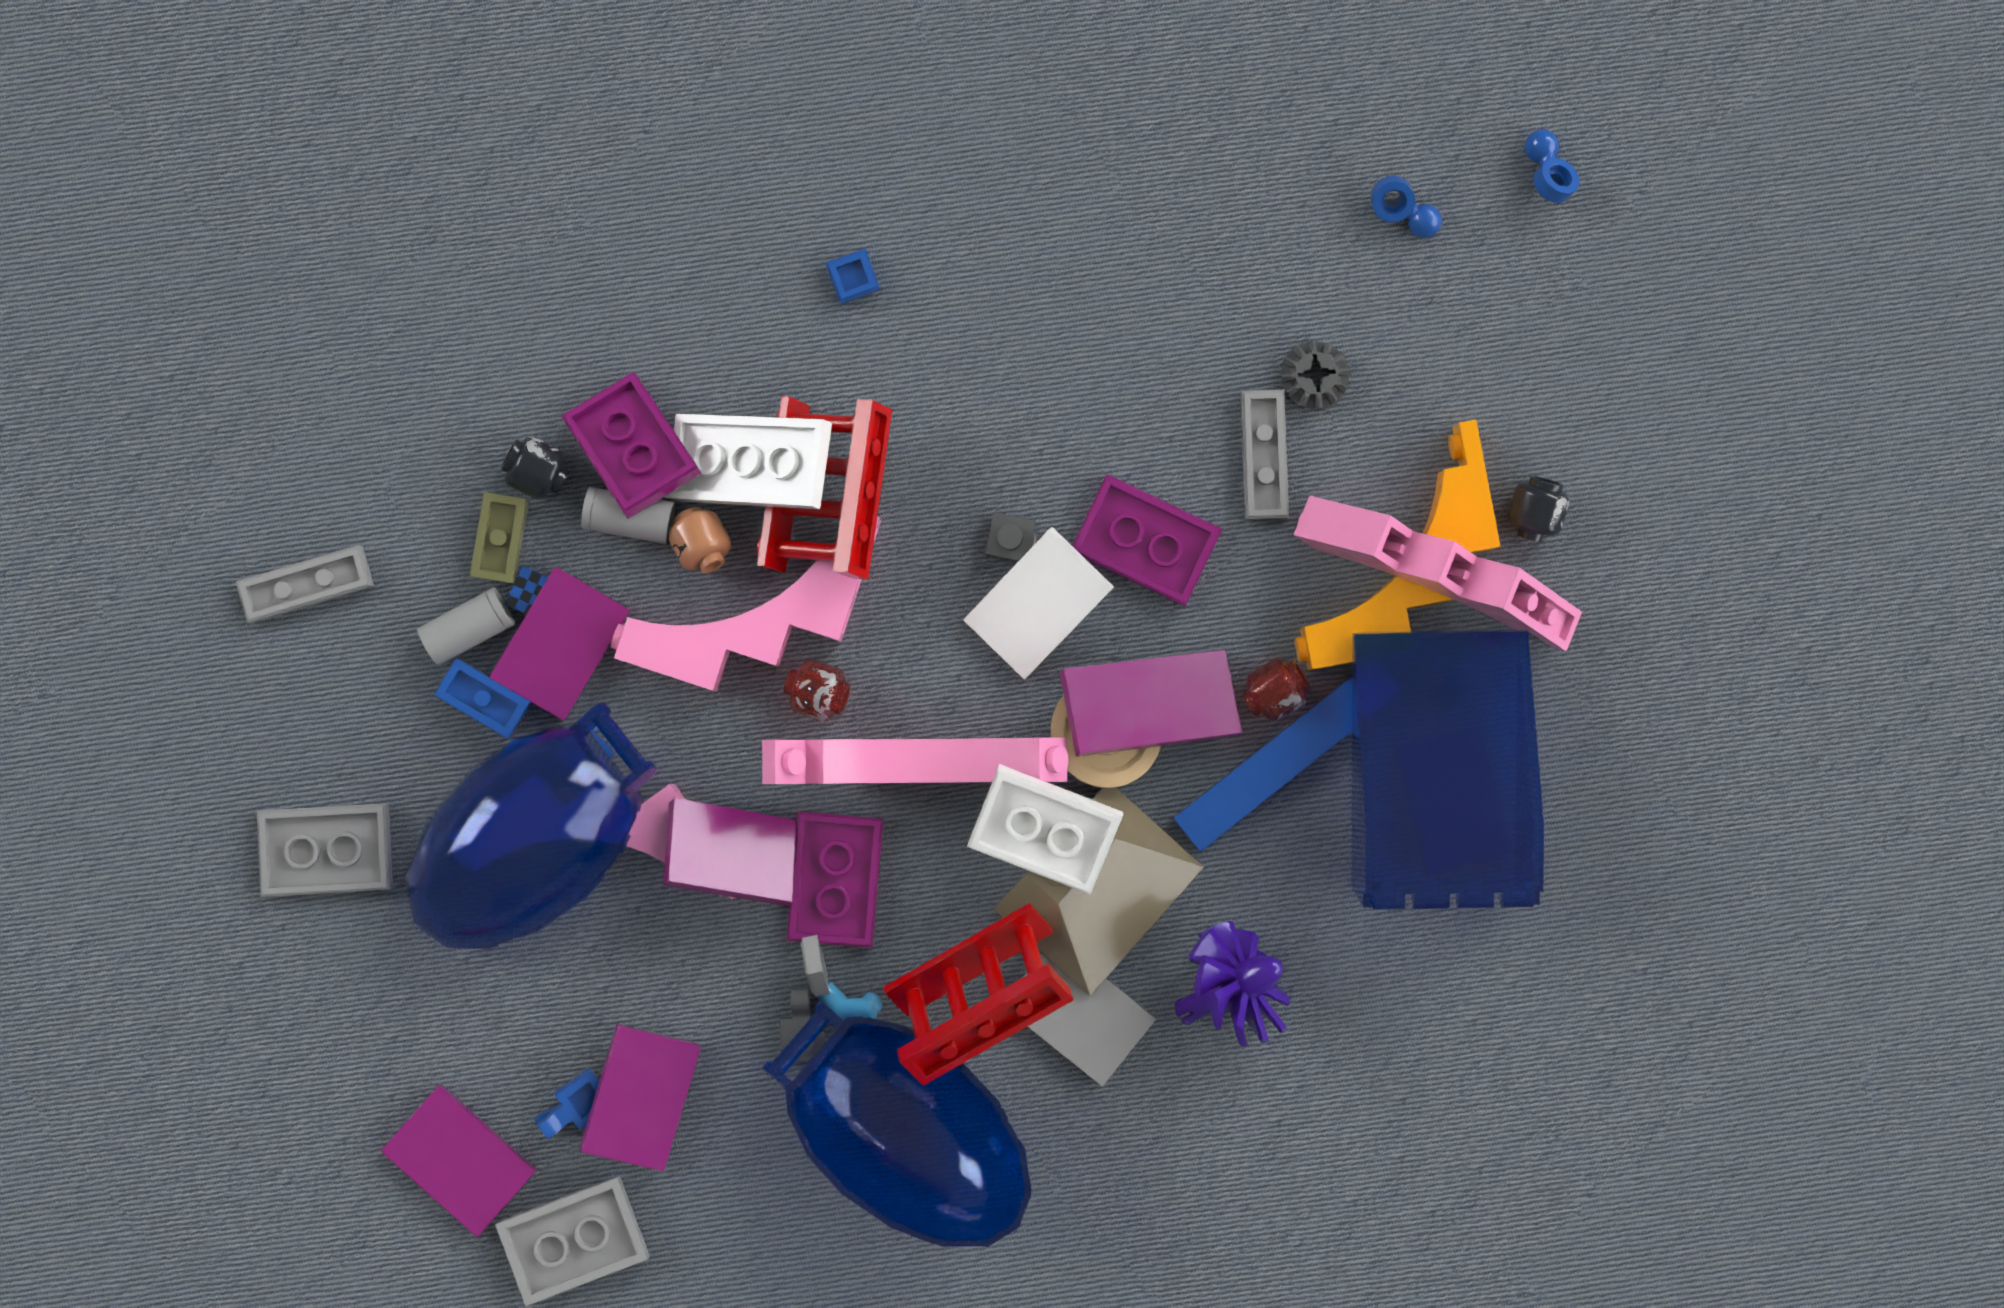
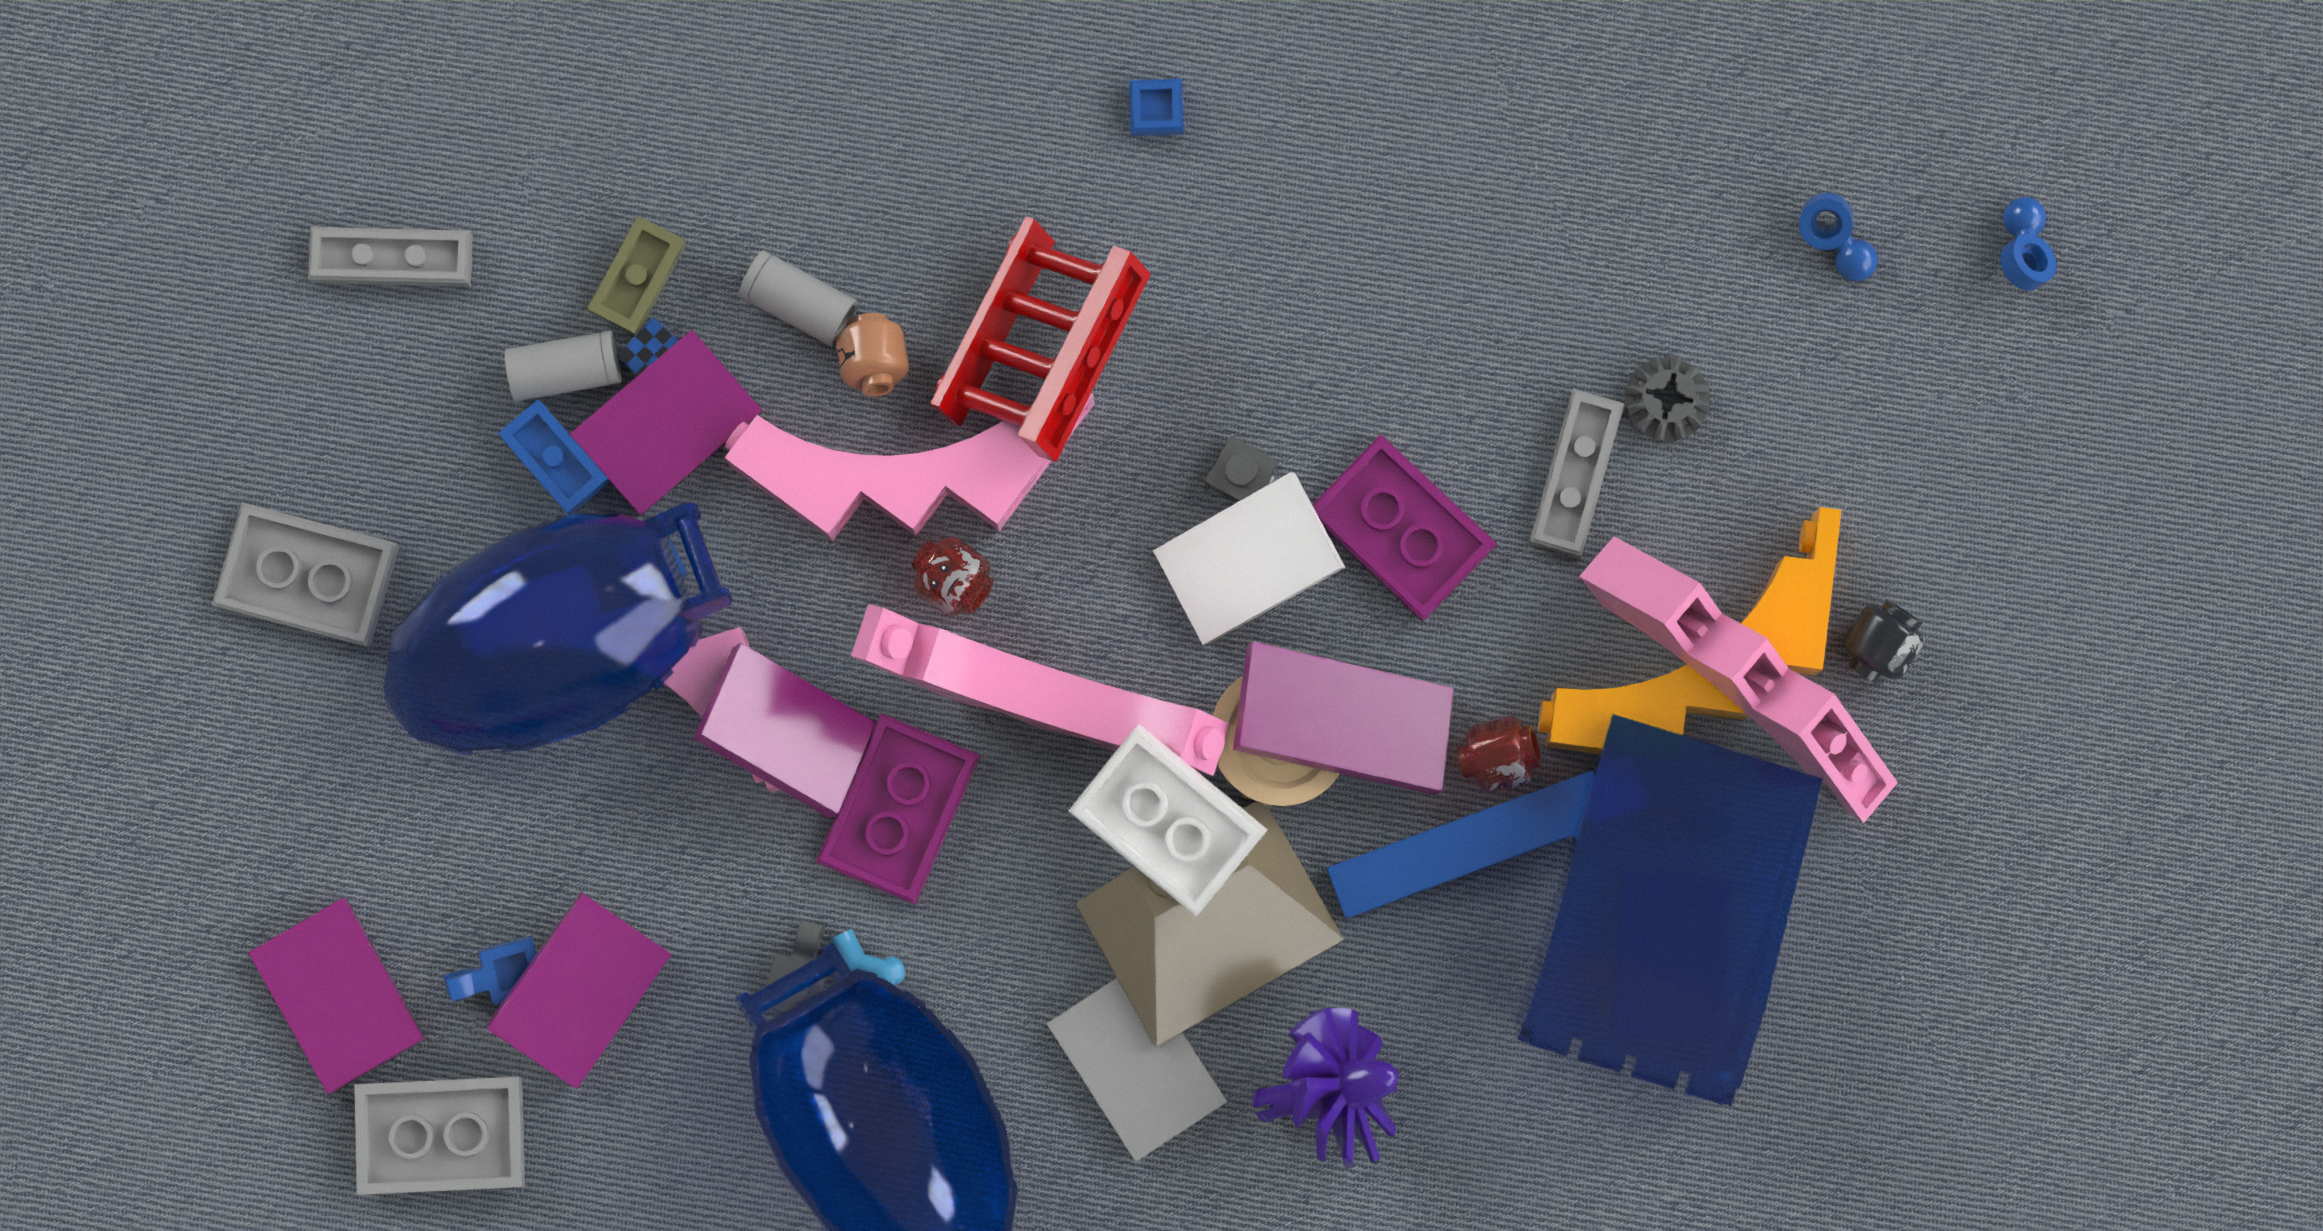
camera: 20 degrees right, 5 degrees down
(534, 467) = (706, 207): black head -> none
(631, 445) = (829, 217): magenta tile -> none
(754, 460) = (960, 278): white plate -> none
(815, 965) = (839, 901): light grey tile -> none
(991, 1020) = (1031, 1021): red fence -> none

